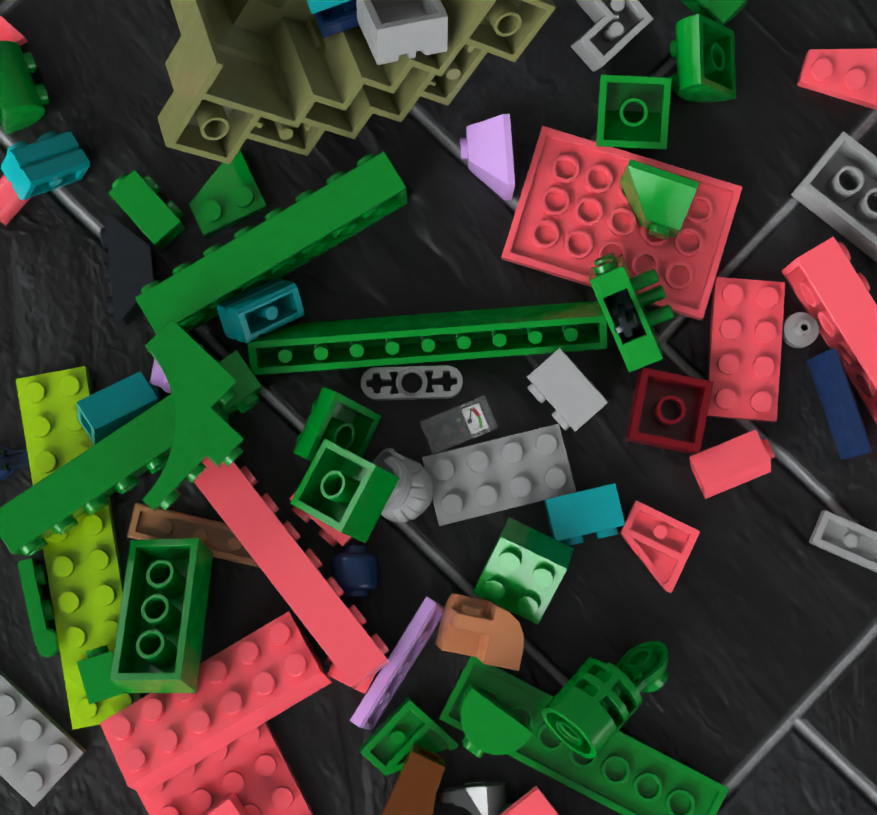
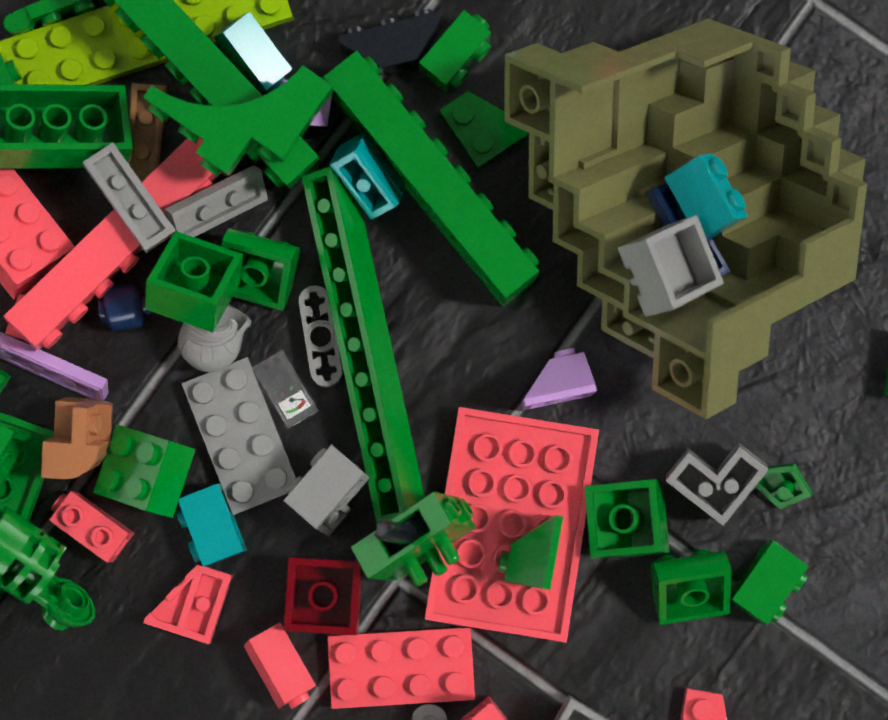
camera: 80 degrees right, 0 degrees up
(249, 545) = (129, 197): none -> light grey plate
(266, 463) = (218, 202): none -> light grey plate
(568, 633) = (90, 525): none -> coral brick

